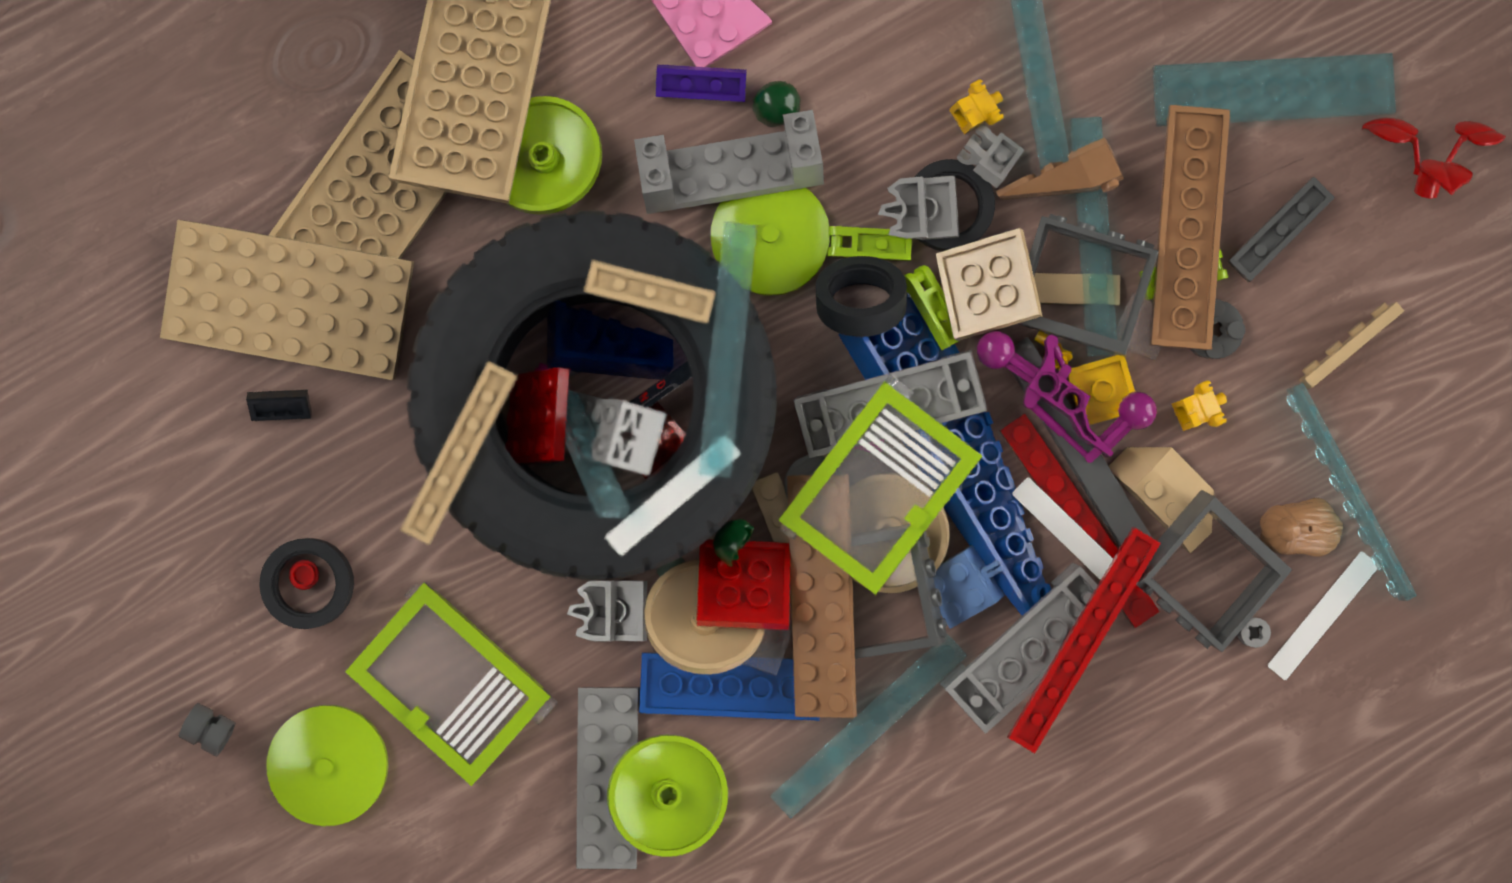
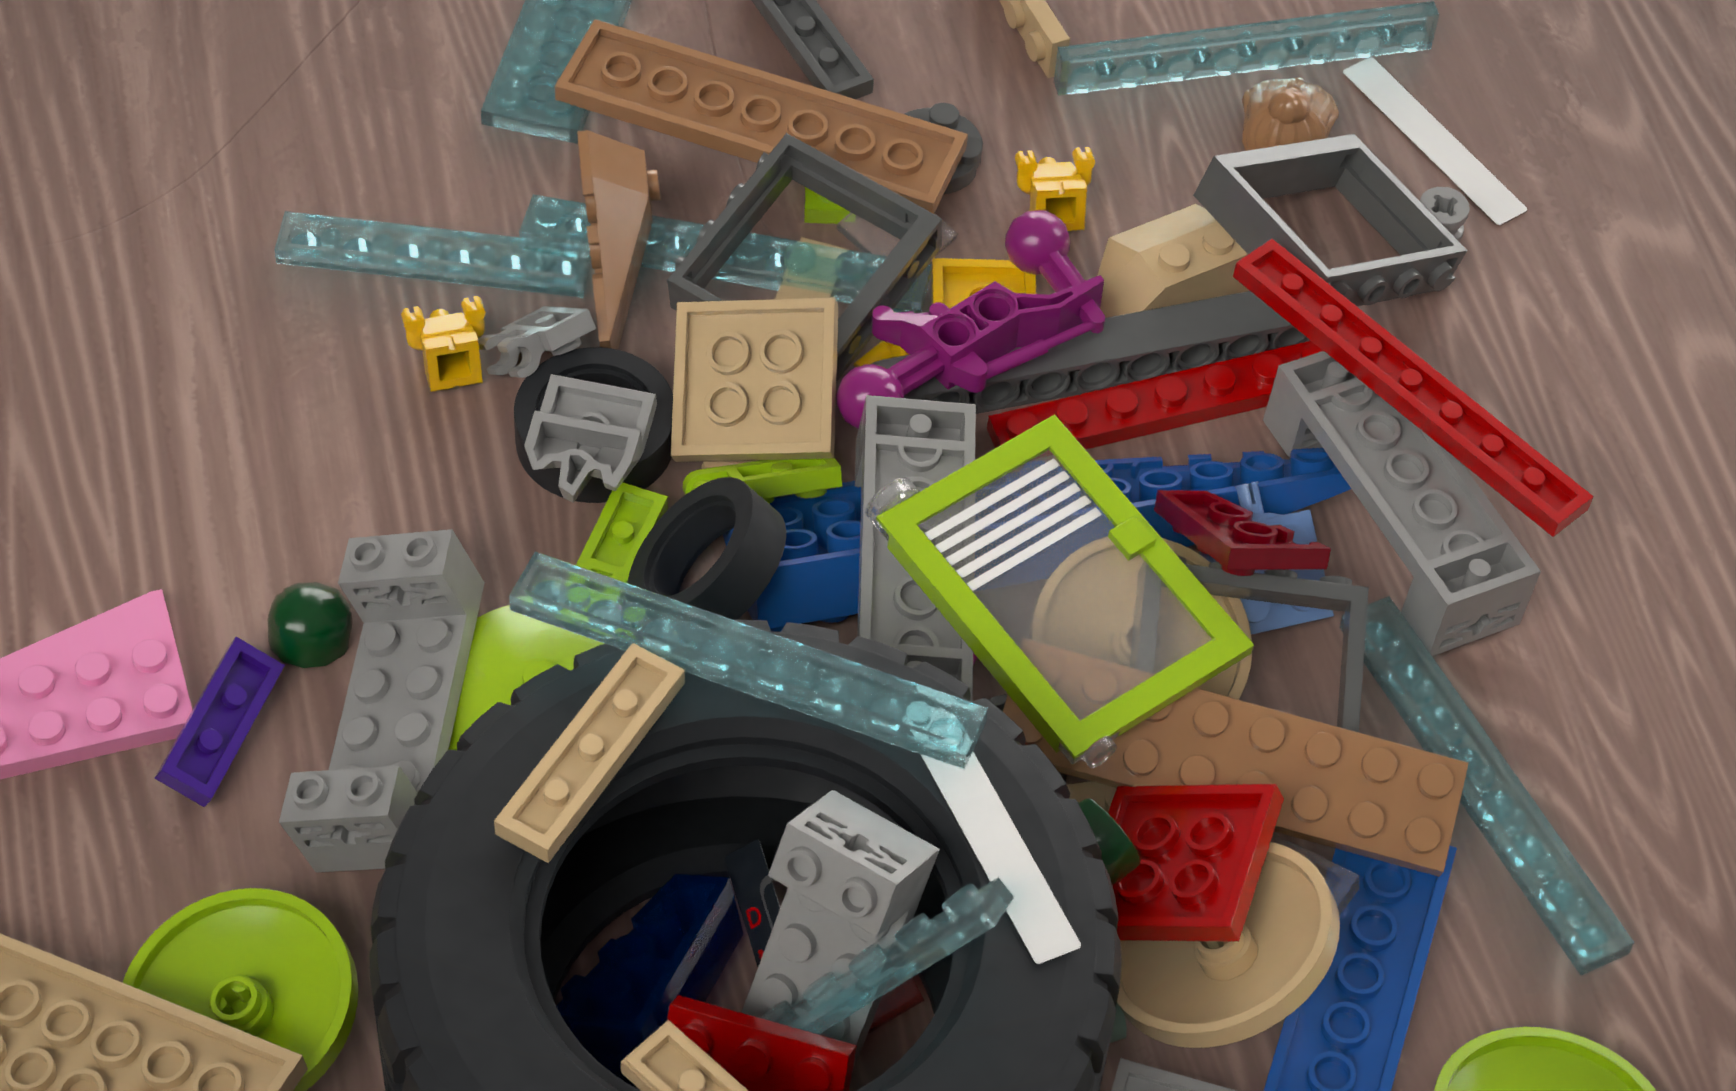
camera: 75 degrees left, 35 degrees down
(948, 566) = (1232, 537): none -> dark red wing
(1063, 527) = (1200, 406): white sticker -> none

